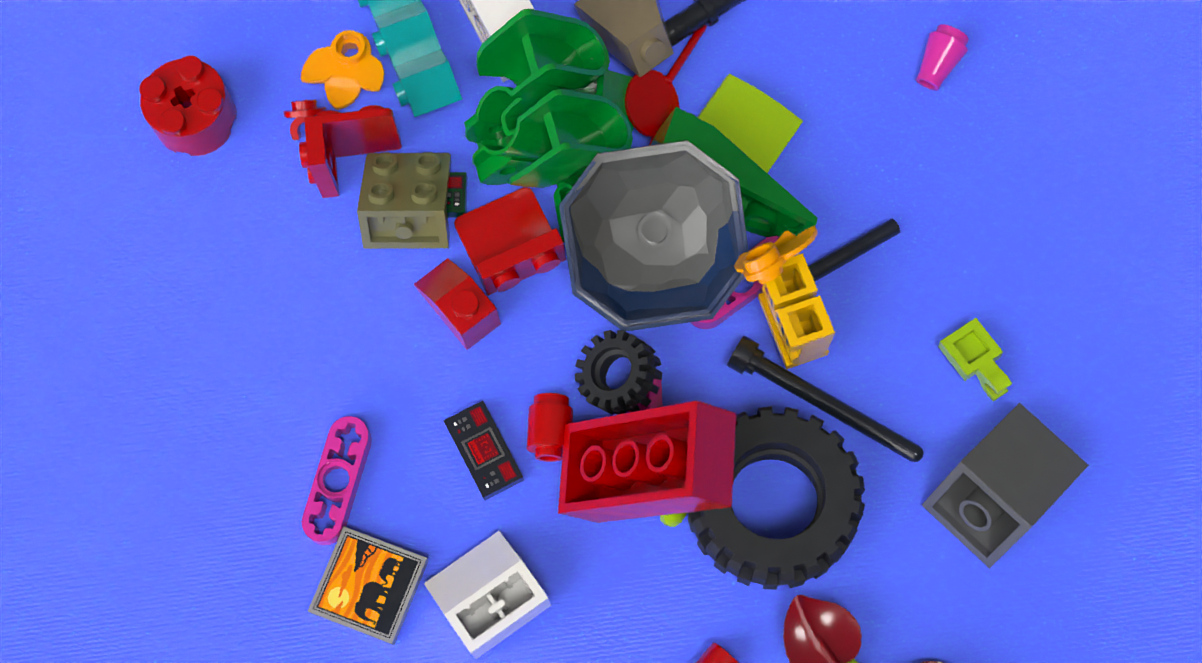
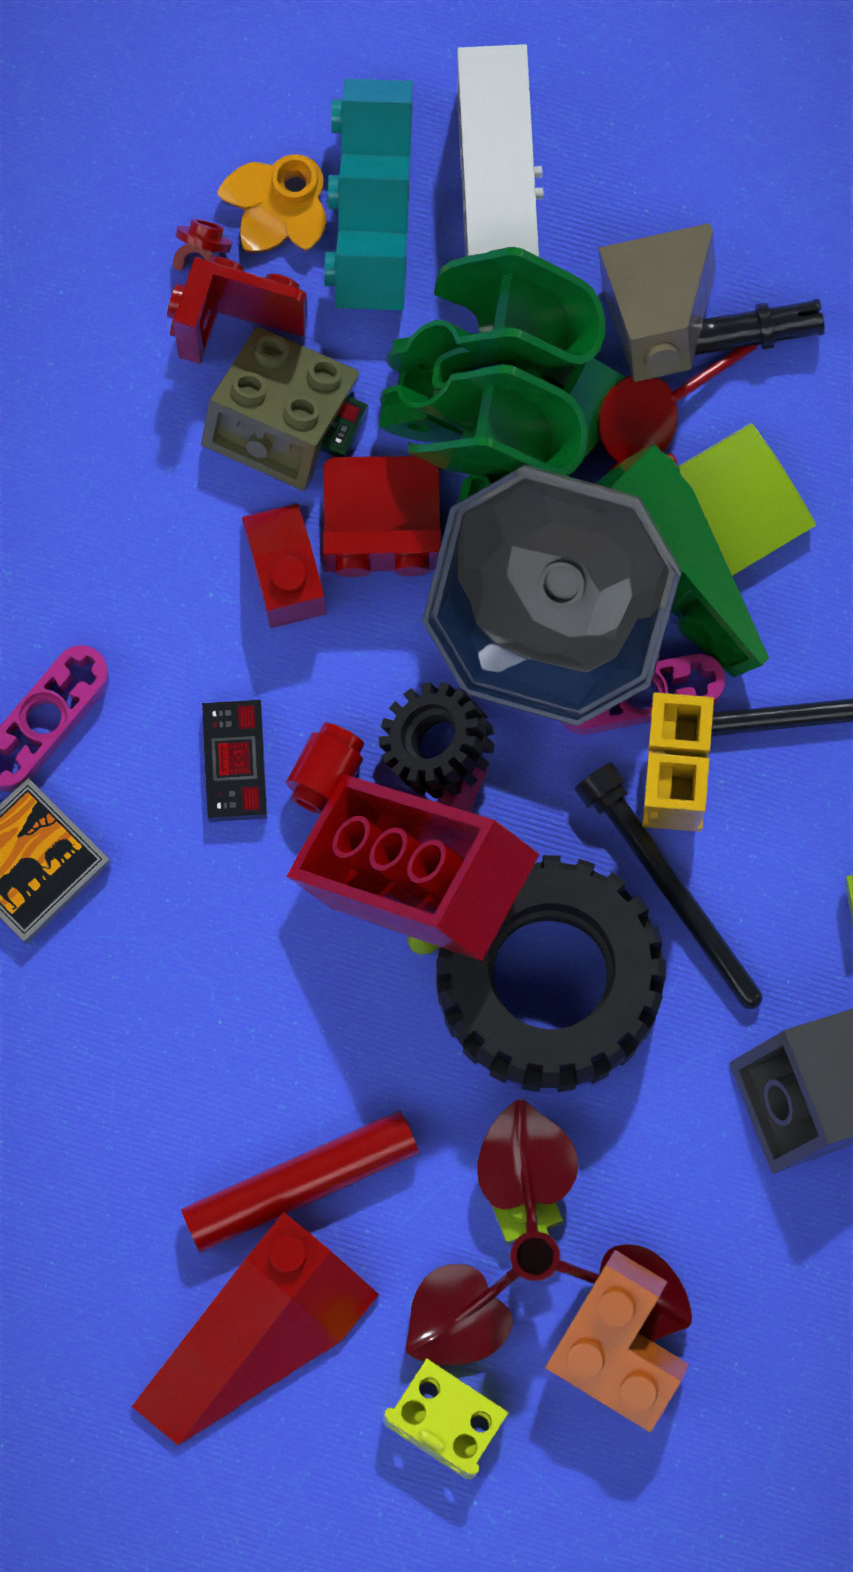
camera: 20 degrees right, 5 degrees up
(188, 106) = (56, 140): red brick -> none
(487, 594) = (160, 935): white slope -> none
(766, 260) = (661, 688): light orange plate -> none

